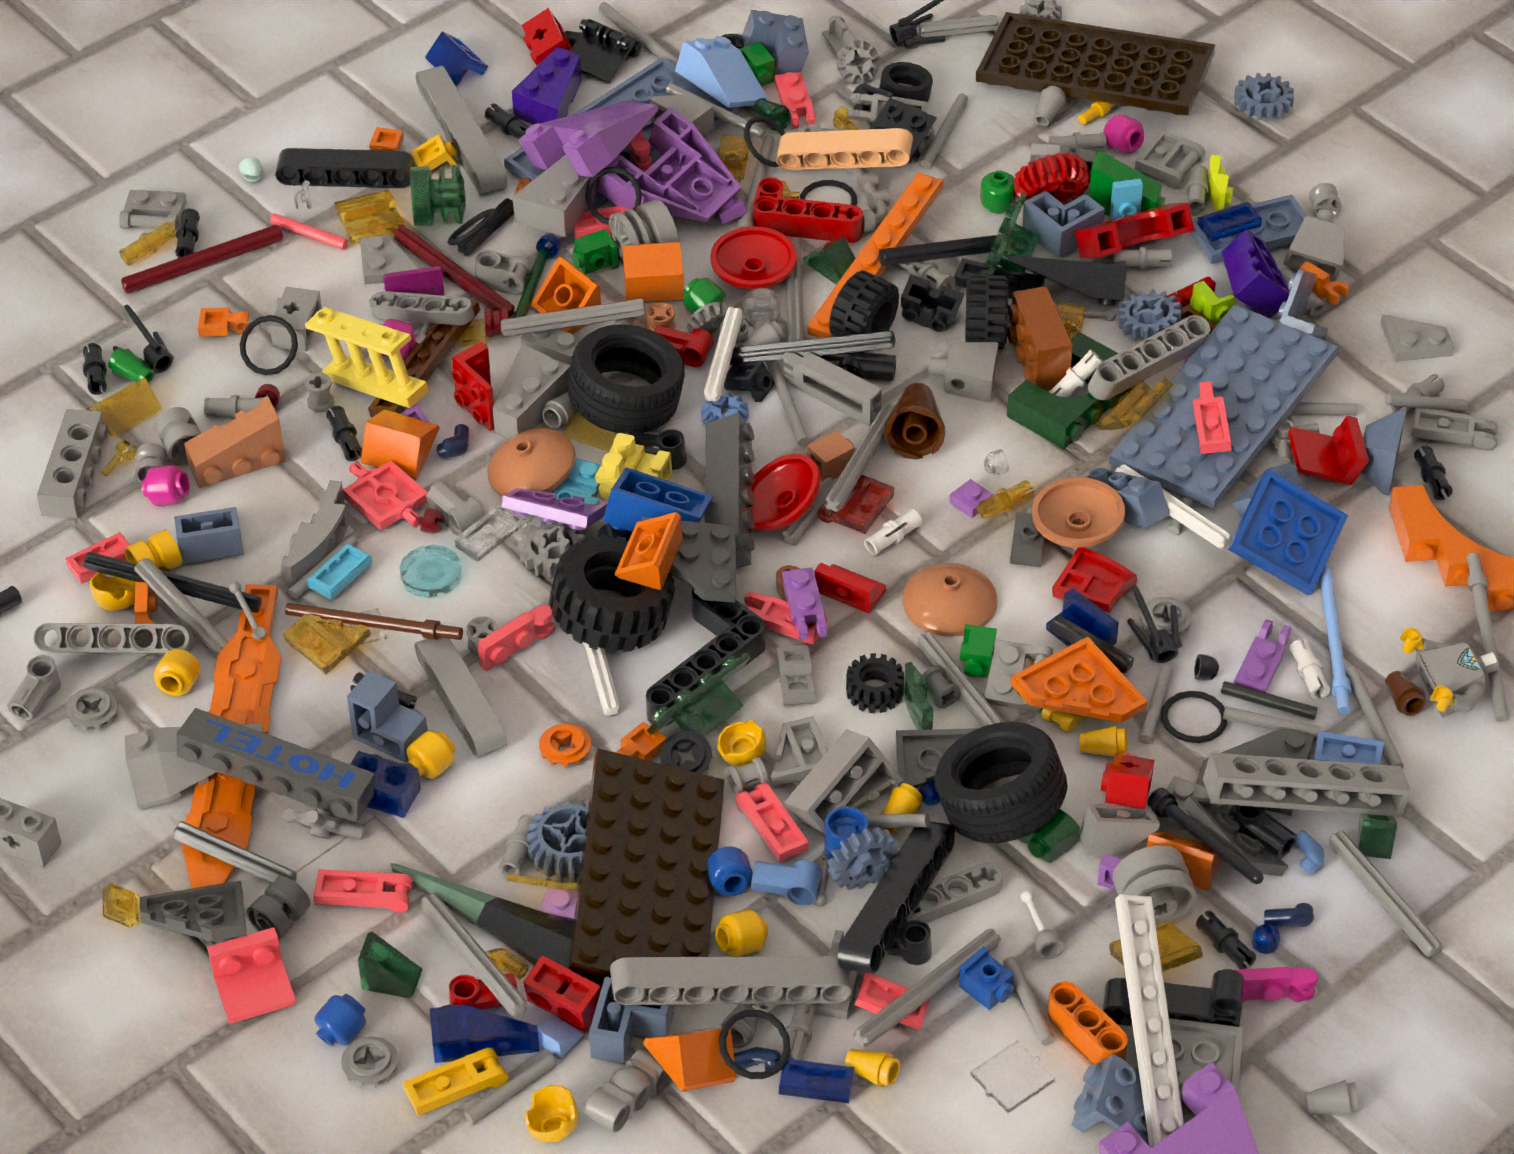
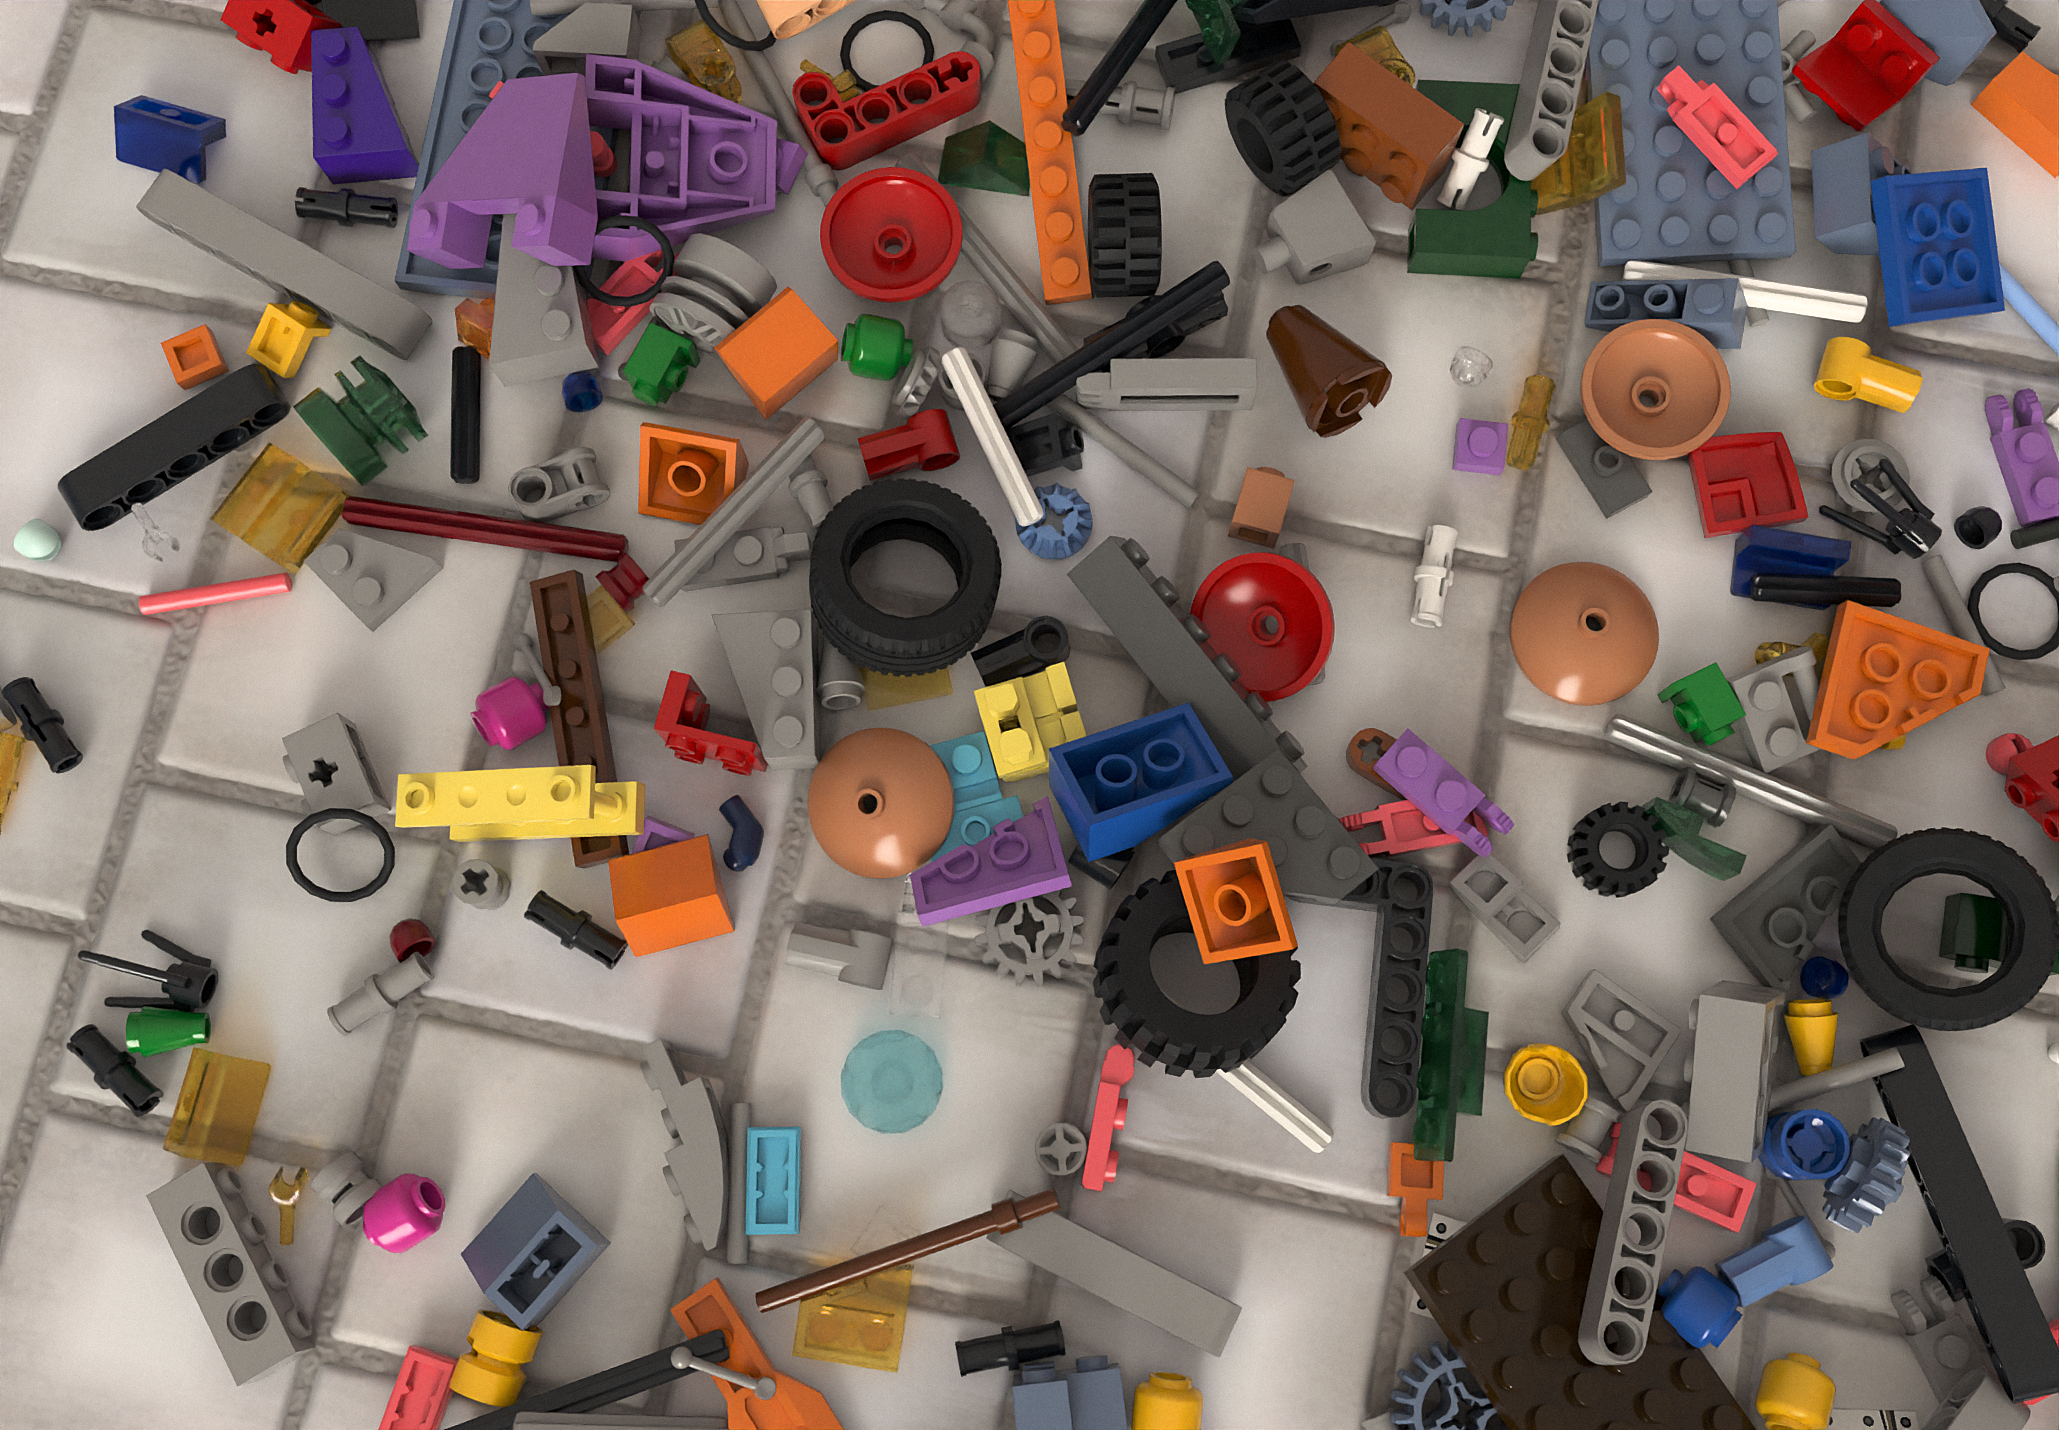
camera: 35 degrees left, 30 degrees up
(174, 429) = (354, 1113): light grey wheel -> none
(201, 259) = (100, 754): dark red axle -> none
(221, 320) = (226, 854): orange plate -> none
(238, 447) = (451, 1079): nougat wedge -> none
(385, 495) = (725, 999): coral plate -> none
(416, 281) = (447, 590): magenta panel -> none
(430, 520) = (825, 997): dark red hinge -> none
(450, 309) = (504, 640): light grey beam -> none
(453, 240) = (479, 427): black piece -> none
(532, 283) = (618, 489): dark green bar -> none
(561, 735) = (1335, 1264): orange gear -> none
(661, 315) = (843, 411): nougat wheel -> none
(684, 742) = (1503, 1169): black gear -> none
(720, 802) = (1614, 1248): none -> light grey beam
(848, 587) = (1453, 705): red panel -> none
(859, 460) = (1311, 490): light grey axle -> none
(863, 506) = (1364, 553): clear red plate -> none
(929, 306) = (1184, 153): black cylinder -> none
(967, 880) = (1986, 1138): light grey beam -> none
(1104, 741) = (1964, 737): yellow cone -> none
(1201, 570) = (1852, 373): none -> yellow piece

